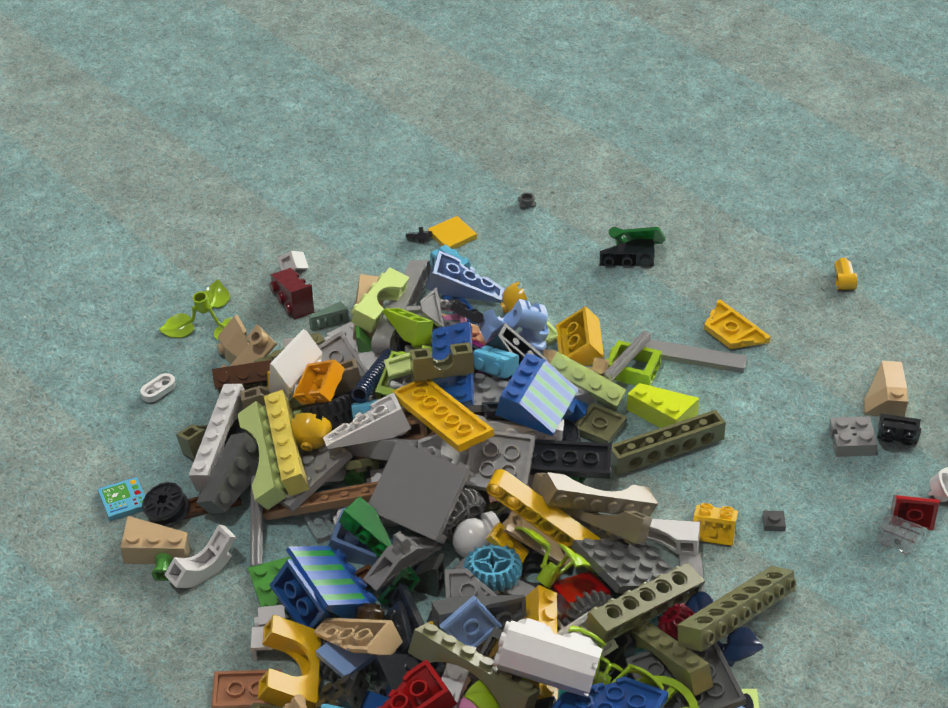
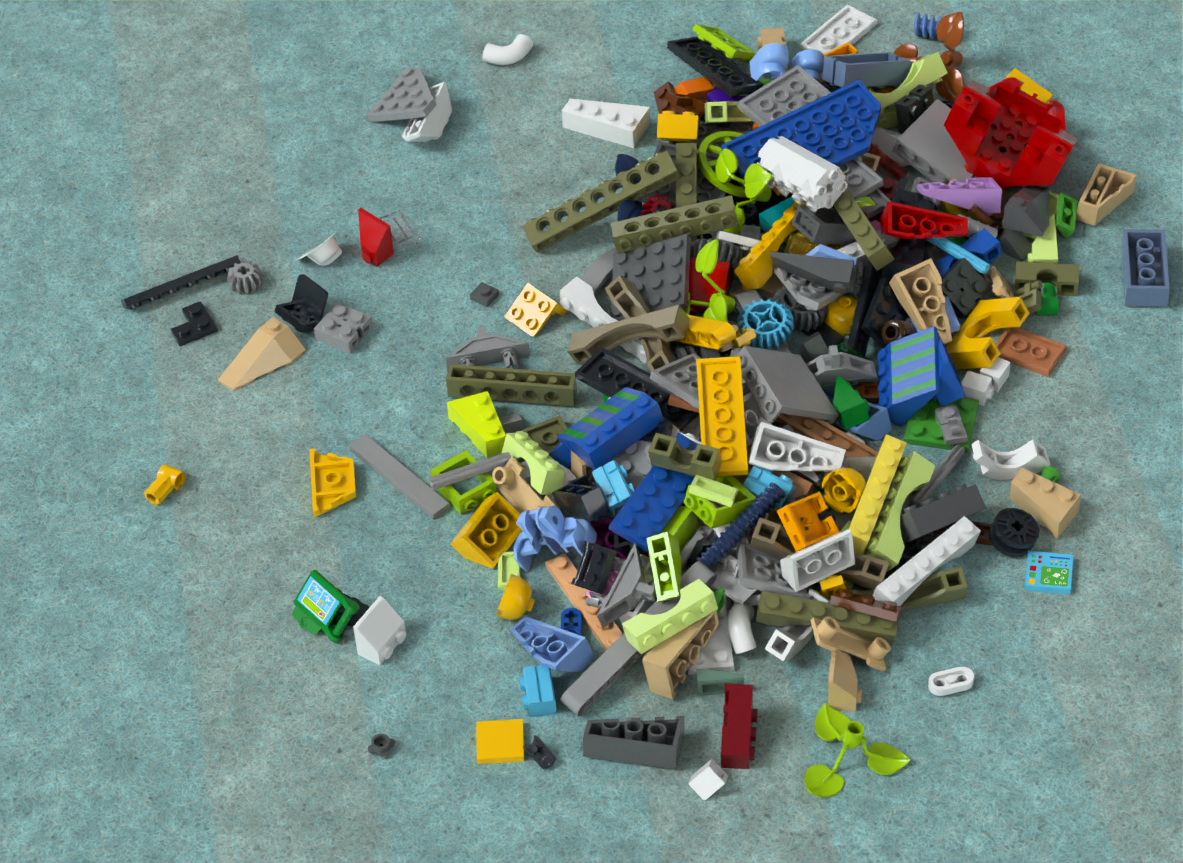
camera: 145 degrees left, 5 degrees up
(266, 565) = (951, 425): none -> light grey plate
(356, 257) = (635, 741): none -> dark grey wedge
(587, 245) = (379, 632): none -> white slope
(643, 424) = (511, 423): none -> light grey slope
(715, 470) = (489, 349): none -> light grey connector

